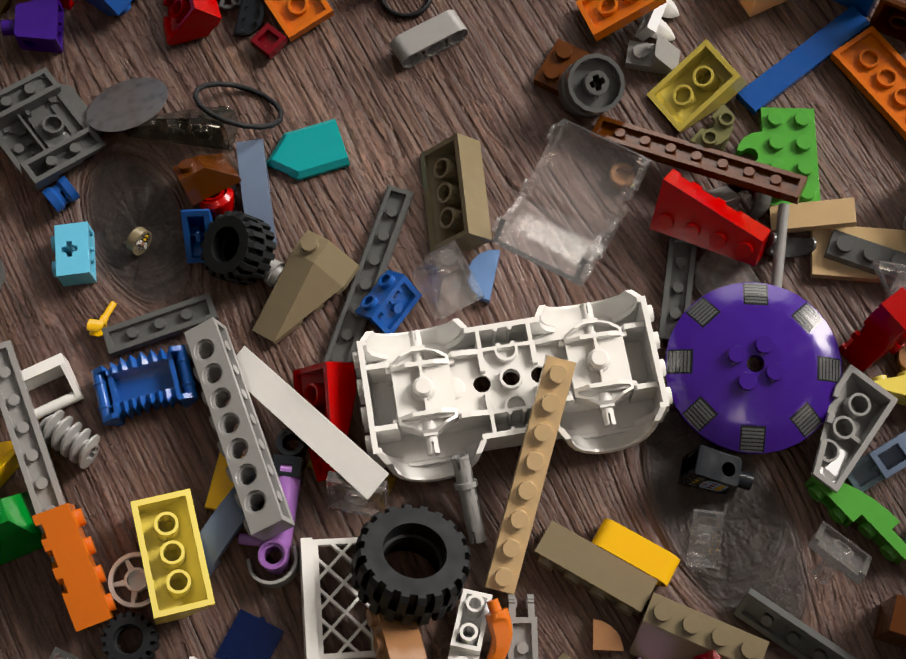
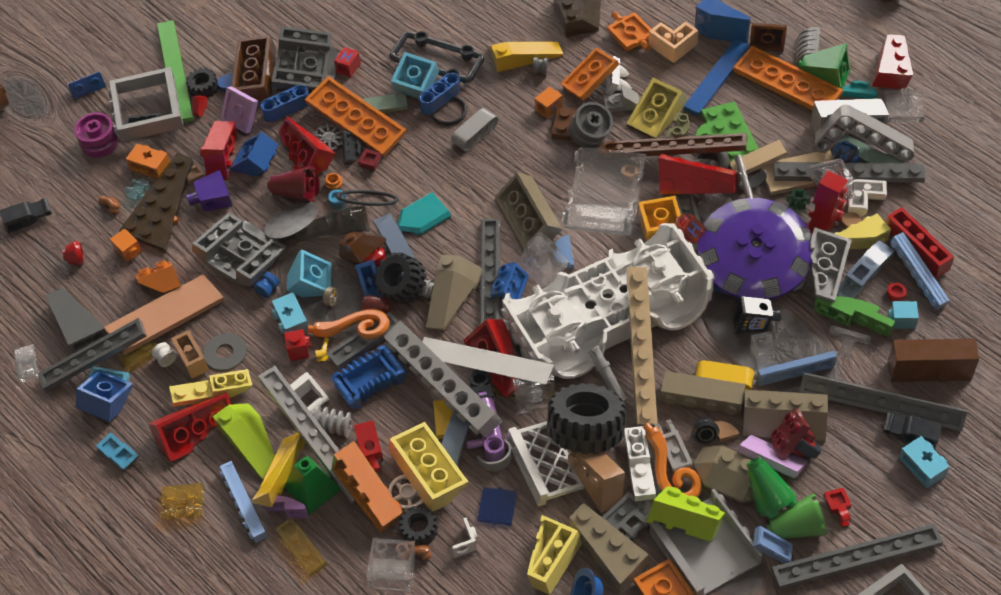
camera: 15 degrees left, 15 degrees down
(66, 303) = (297, 345): none -> red brick
(103, 486) = (369, 443): none -> red torso
(122, 198) = (309, 275): none -> medium azure slope
(125, 292) = (329, 329): none -> orange plant
(154, 51) = (296, 184): none -> dark red cone
(194, 276) = (376, 303): none -> clear red brick
(205, 54) = (333, 181): none -> orange plate
(208, 93) = (333, 201): none -> dark azure tile
(547, 27) = (548, 102): none -> orange brick
(576, 631) = (705, 431): none -> black cone
(636, 267) = (656, 212): none -> light orange brick
(668, 305) = (691, 227): none -> clear red brick
(743, 575) = (796, 368): none -> medium blue tile
(850, 294) = (798, 199): none -> clear green gear

